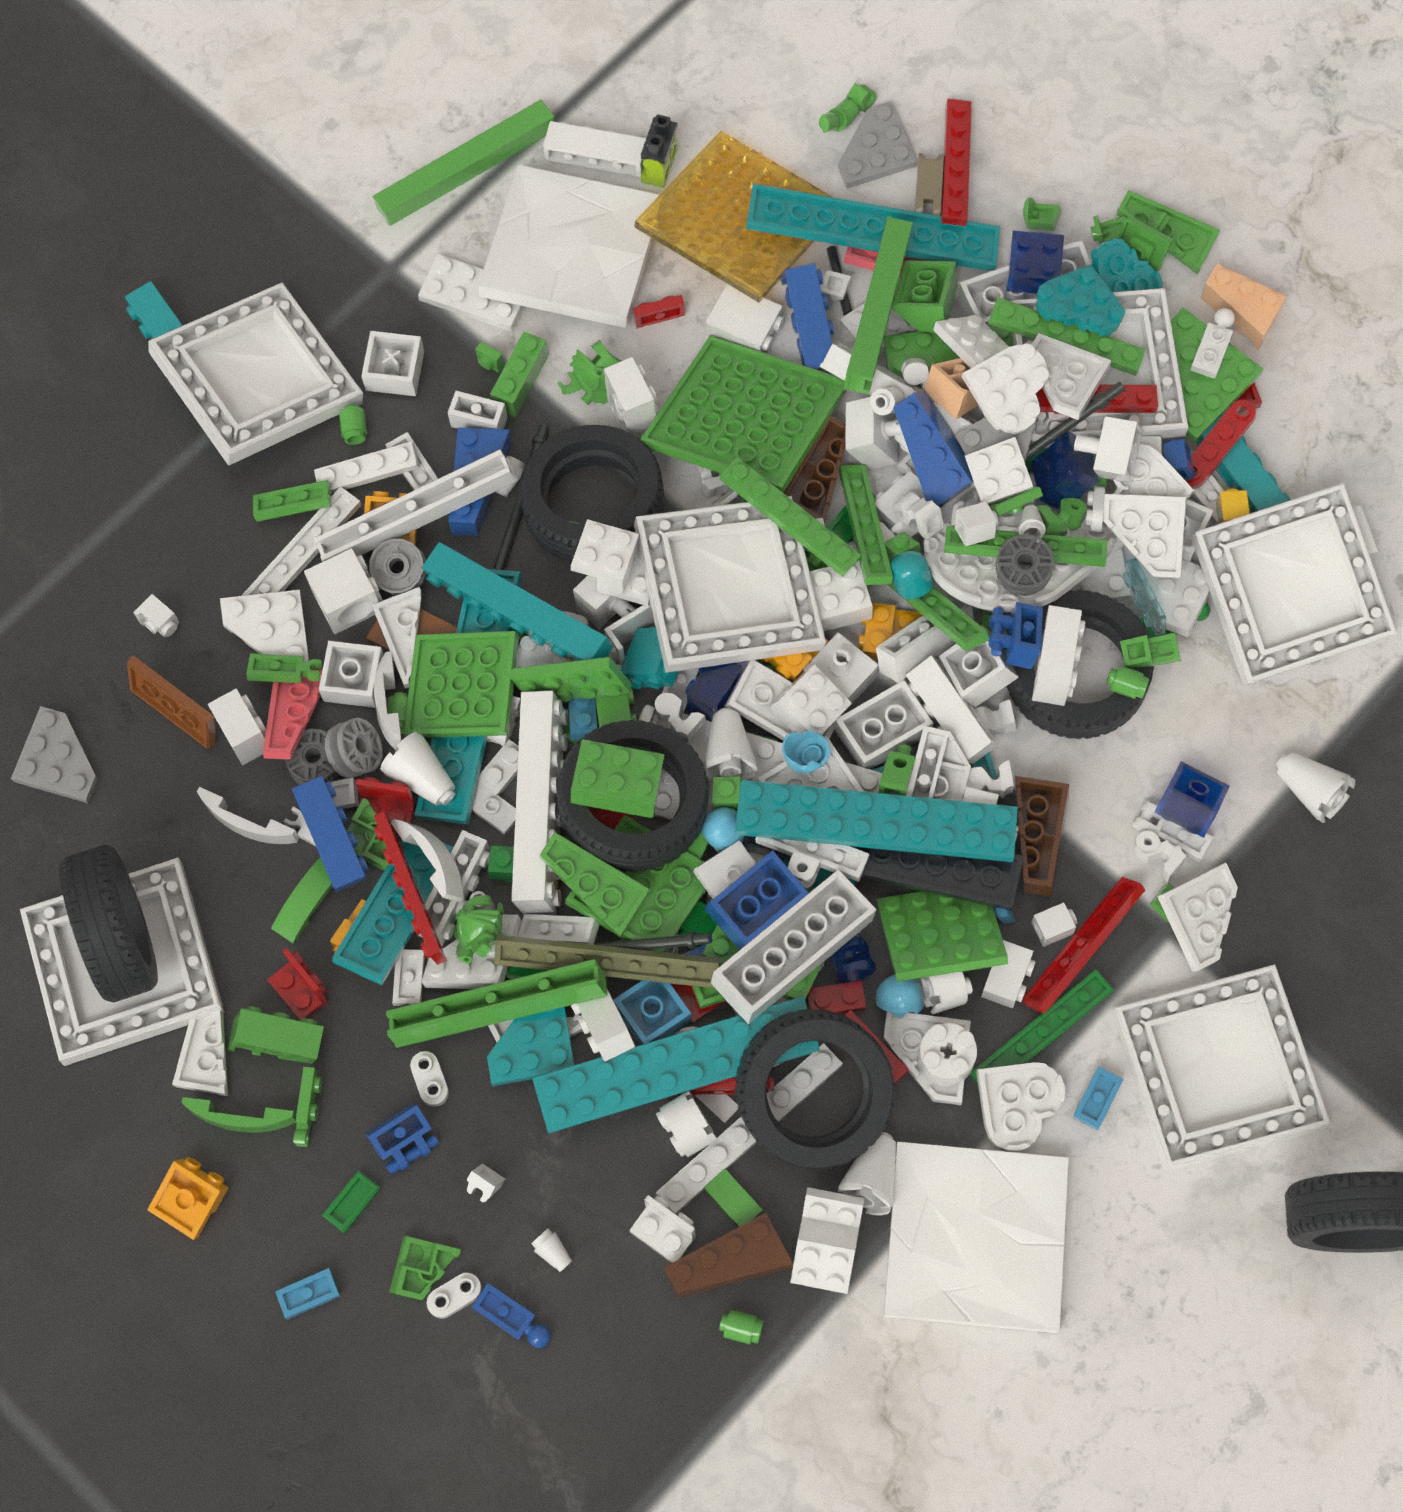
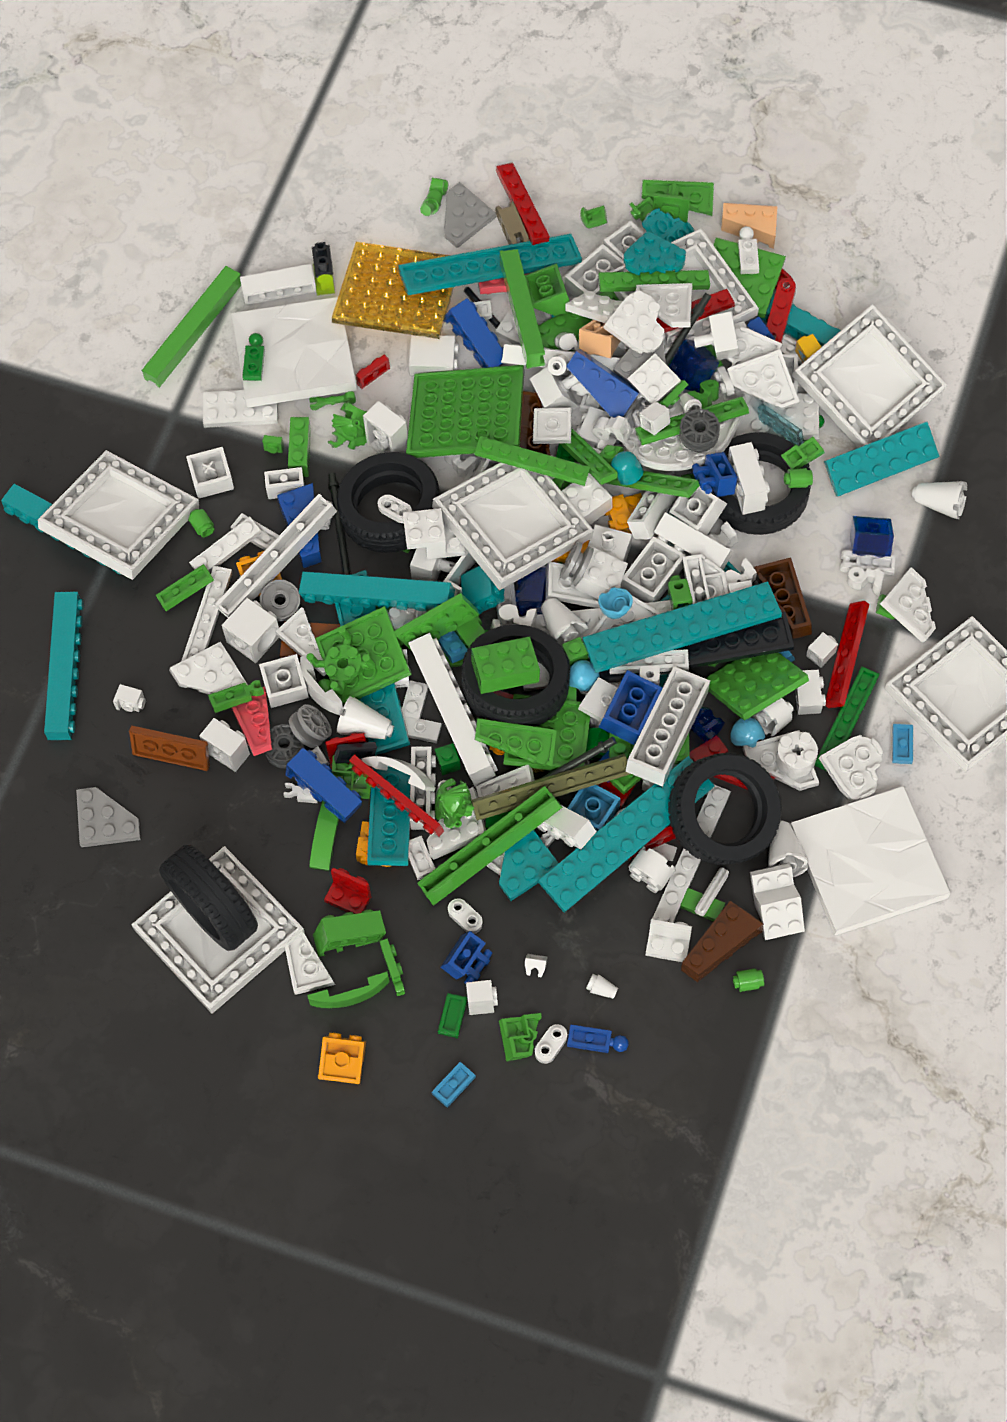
camera: 25 degrees left, 5 degrees down
(99, 540) = (62, 666): none -> teal brick
(274, 832) = (283, 803): white slope -> none
(391, 1197) = (481, 997): none -> white brick
(394, 807) = (361, 750): none -> black plate
(421, 674) = (335, 656): none -> bright green plate
(513, 236) = (254, 358): none -> green plate
(589, 509) = (396, 509): none -> white plate
(613, 333) = (347, 397): none -> bright green piece
(751, 1188) = (711, 892): none -> white axle
(782, 677) = (576, 563): none -> light grey wheel
(845, 477) = (552, 425): none -> white plate
(1033, 260) = (607, 243): clear blue brick -> none
(1259, 697) = (881, 459): none -> teal plate

